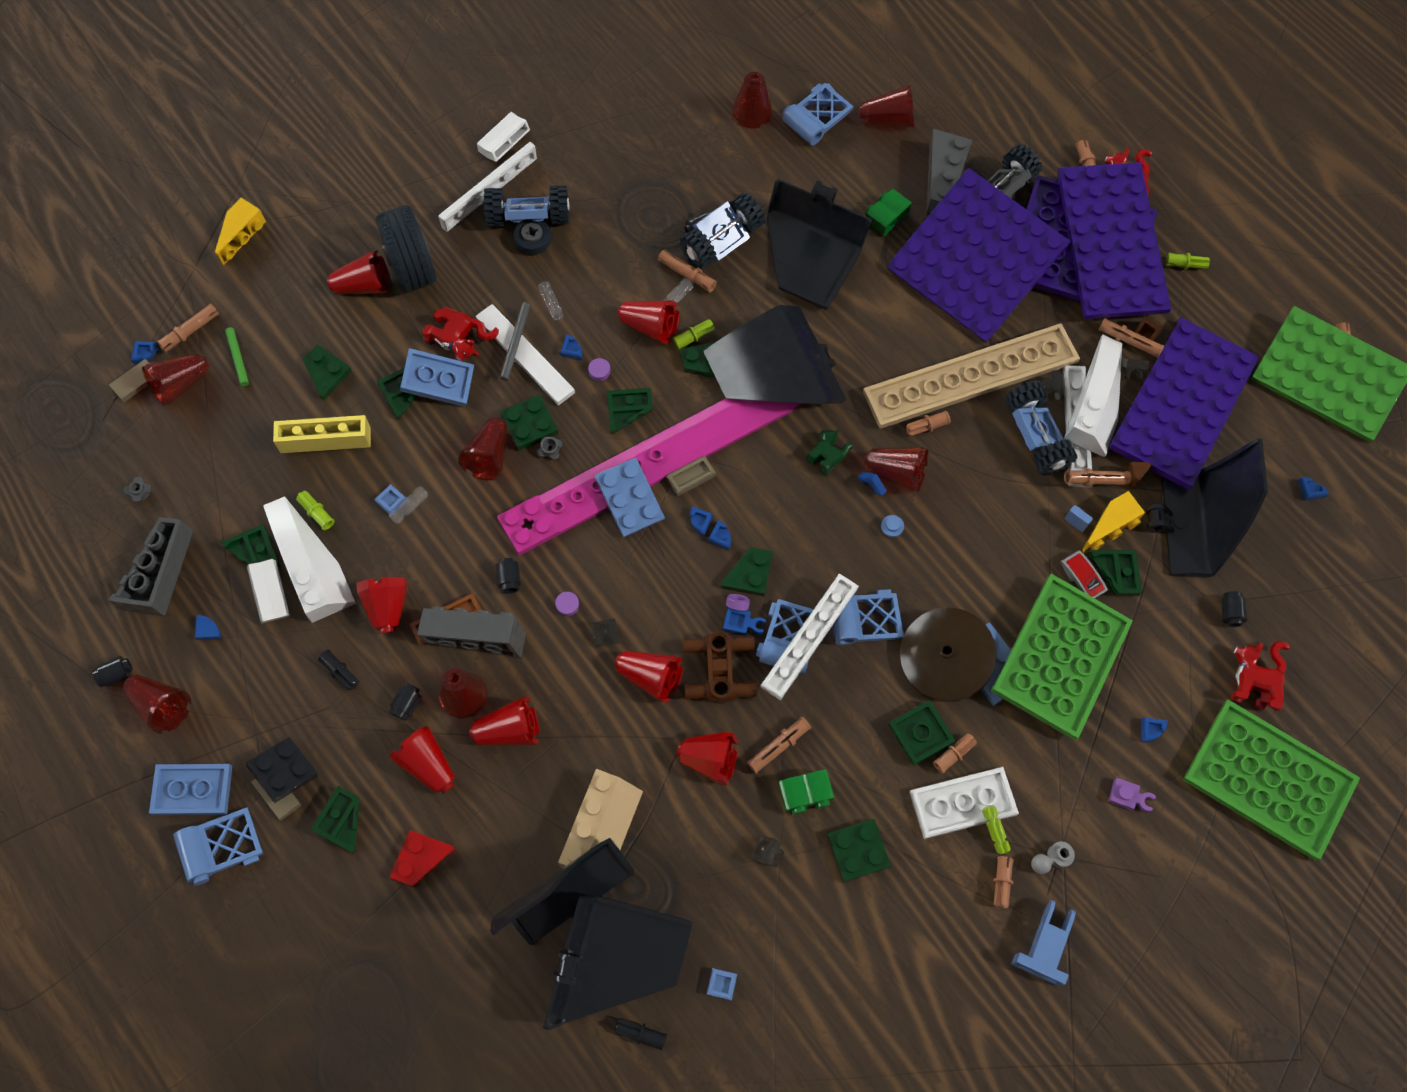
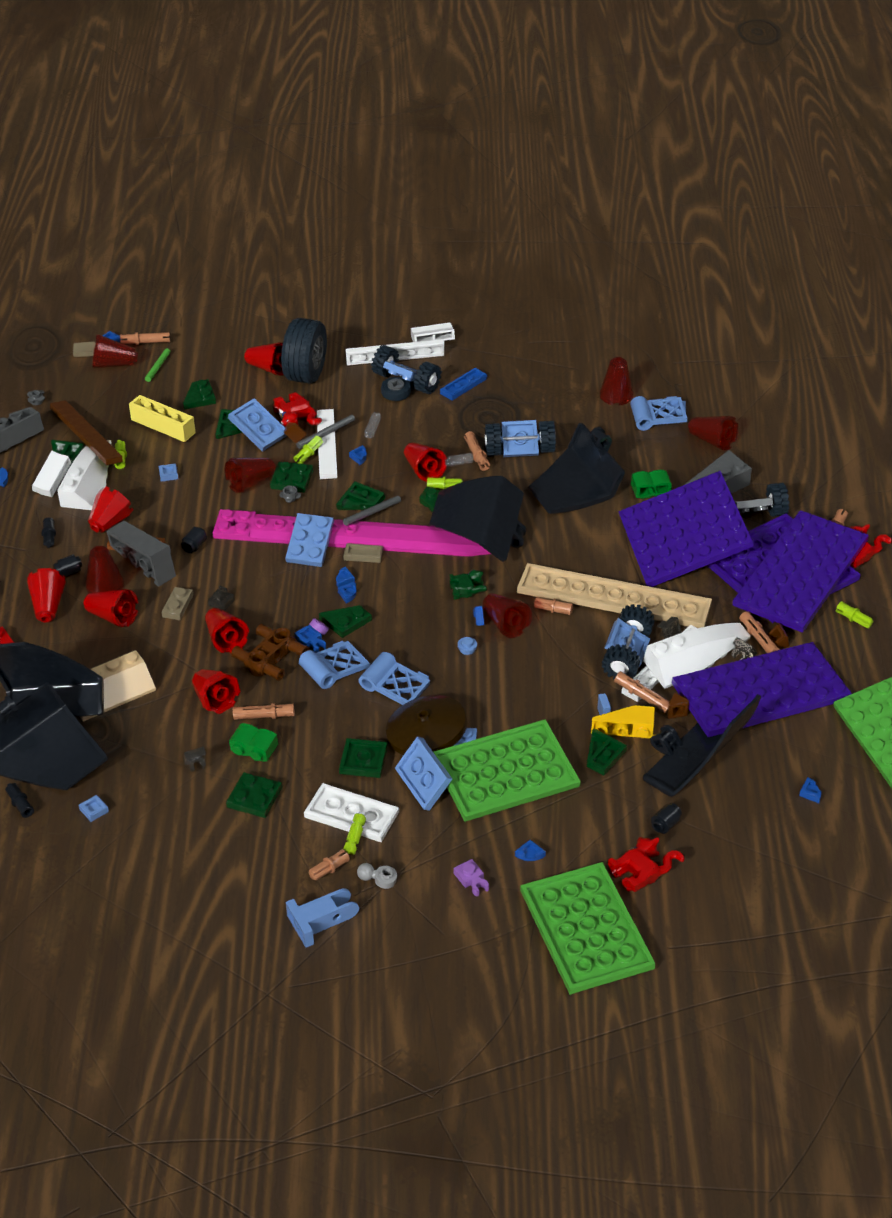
camera: 40 degrees right, 25 degrees down
(238, 227) = (224, 305): yellow slope -> none
(253, 508) = (86, 432): none -> reddish brown tile
(408, 505) = (175, 478): clear axle -> none
(482, 362) = (294, 432): none -> reddish brown slope
(518, 377) = (308, 449): none -> lime axle
(564, 668) = (177, 603): none -> dark tan plate
(567, 603) = (214, 573): medium lavender tile -> none
(592, 187) = (463, 384): none -> blue tile
(599, 369) = (364, 473): medium lavender tile -> none
(656, 415) = (374, 509): none -> dark grey bar
(809, 637) = (341, 660): white tile -> none
(954, 753) = (374, 782): nougat axle -> none
(1000, 715) = (423, 773): none -> medium blue plate
(1084, 574) = (574, 741): slope -> none

